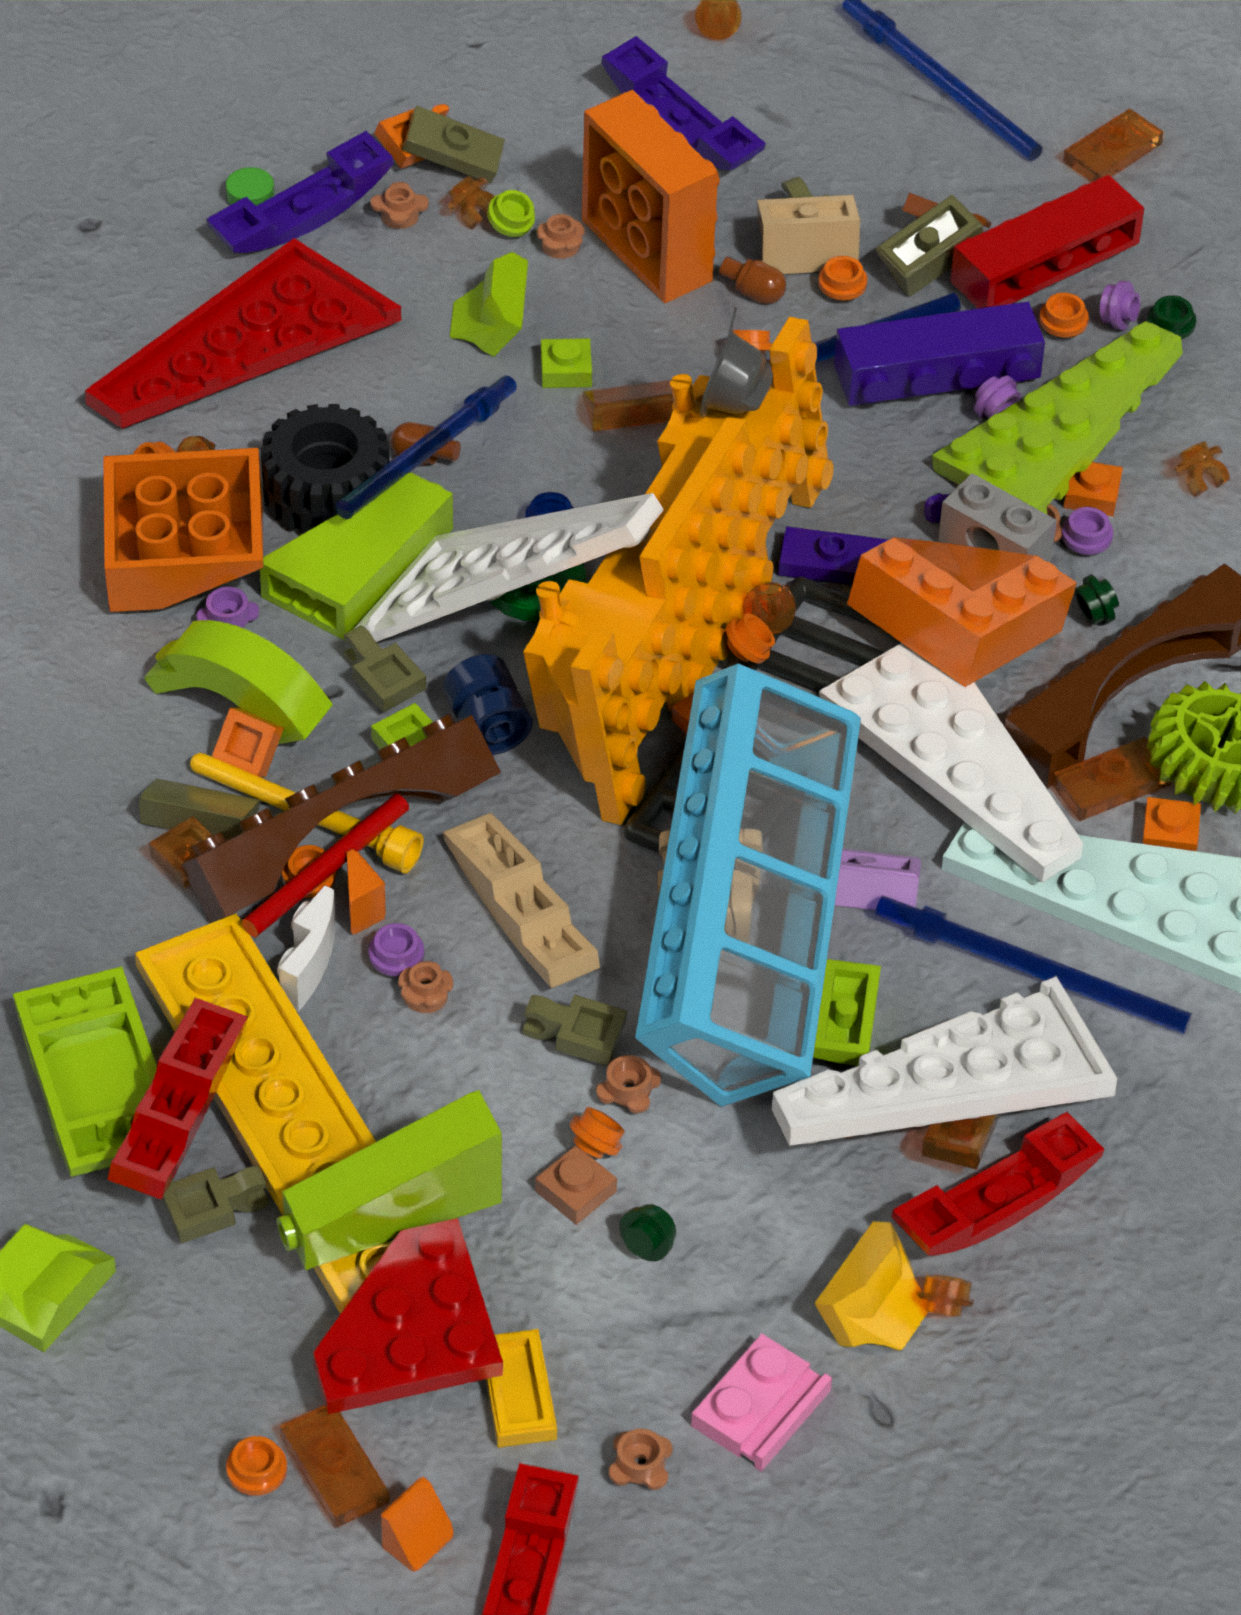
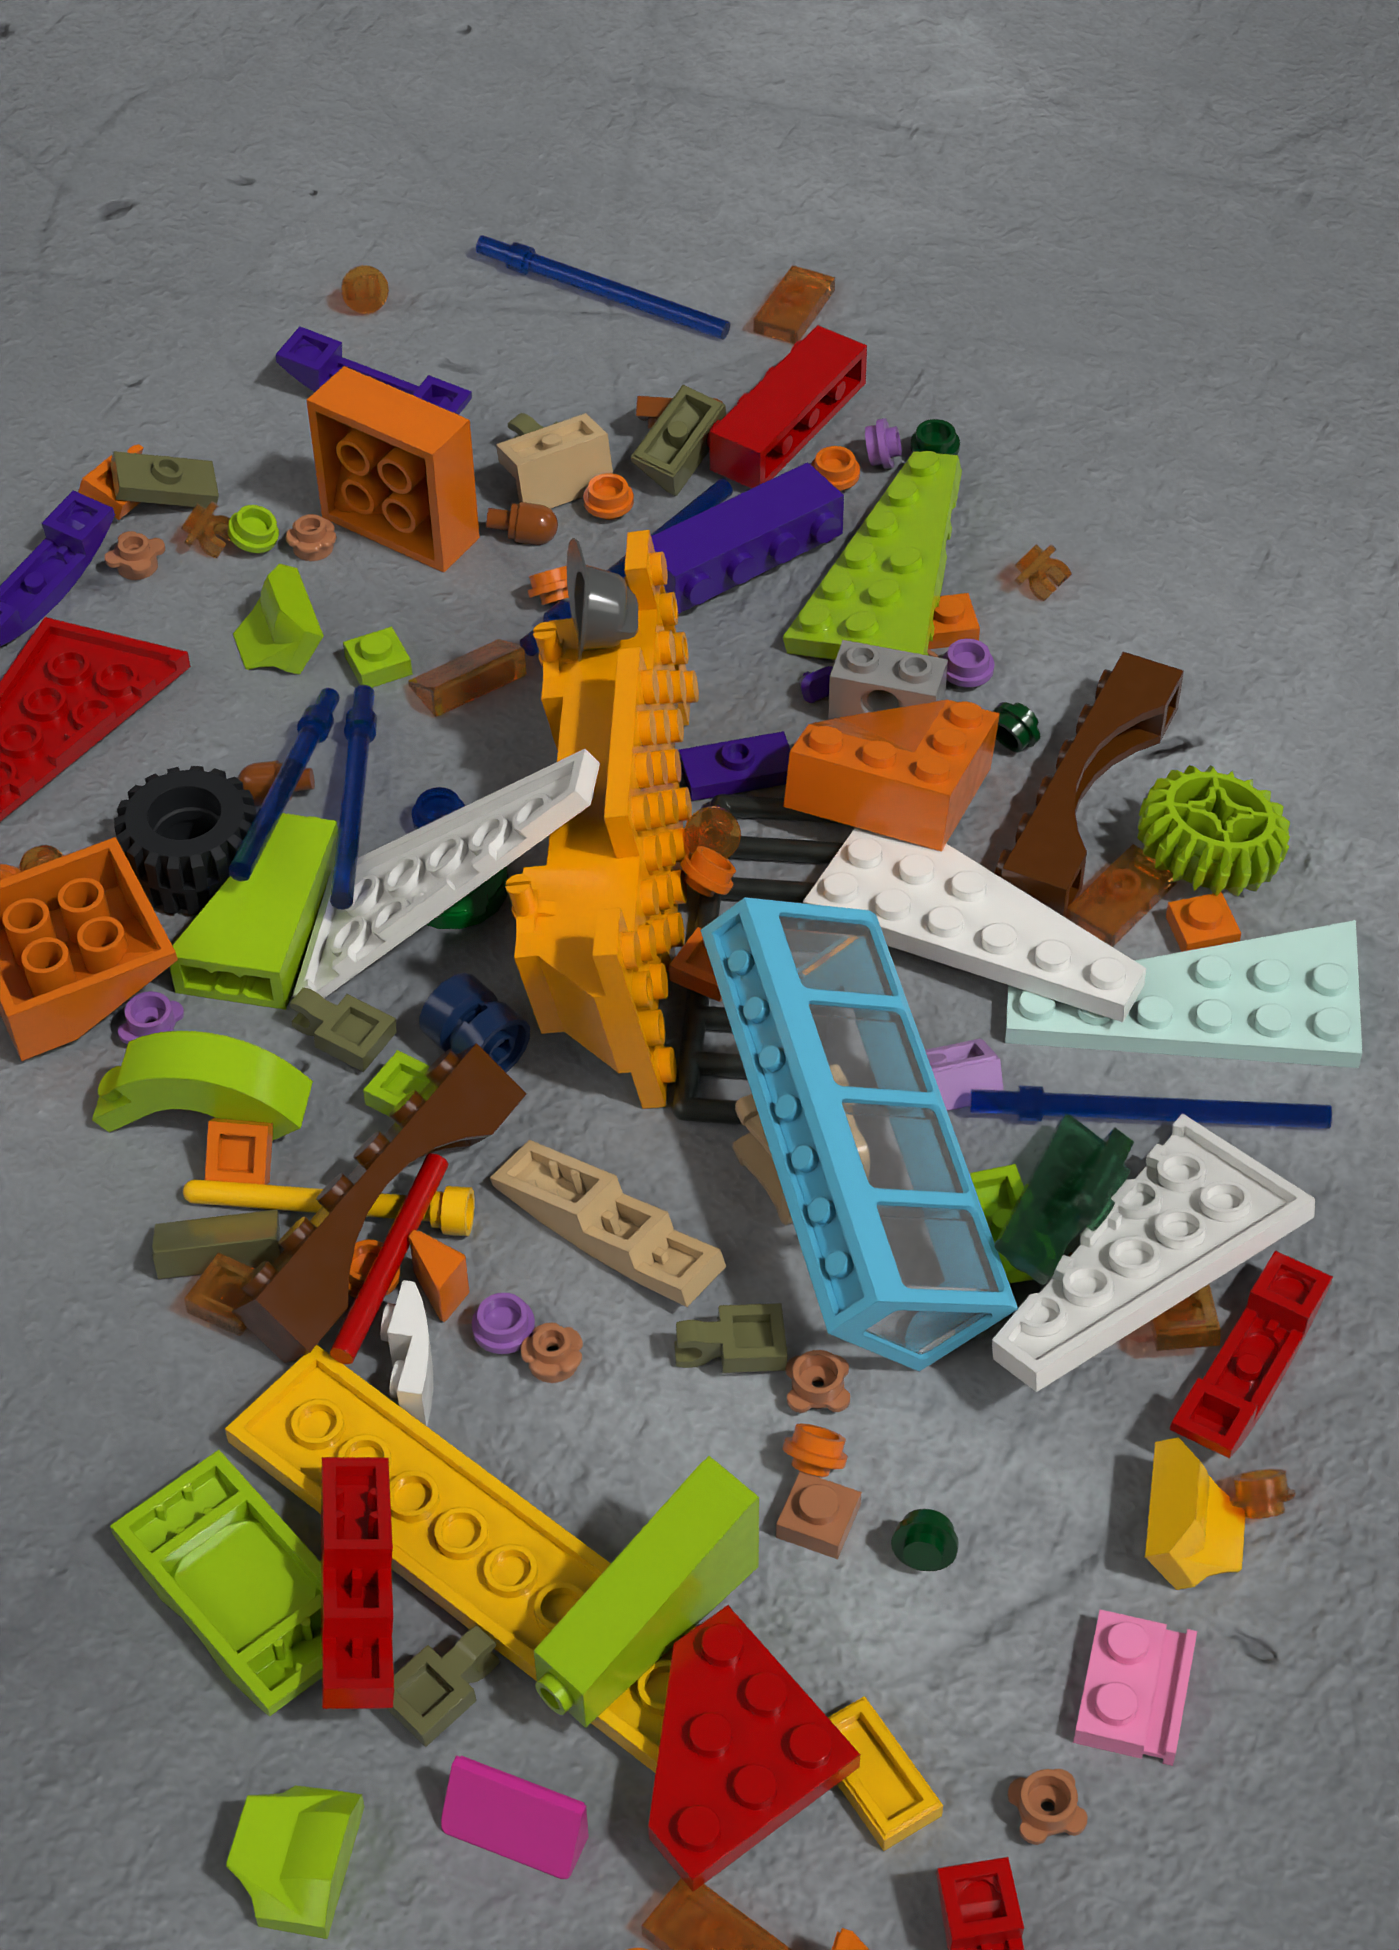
camera: 20 degrees left, 0 degrees up
(221, 1316) = (514, 1818): none -> dark pink slope
(517, 423) = (359, 731): none -> clear blue bar
(899, 1004) = (1064, 1195): none -> clear green bracket
(995, 396) = (815, 563): medium lavender plate -> none

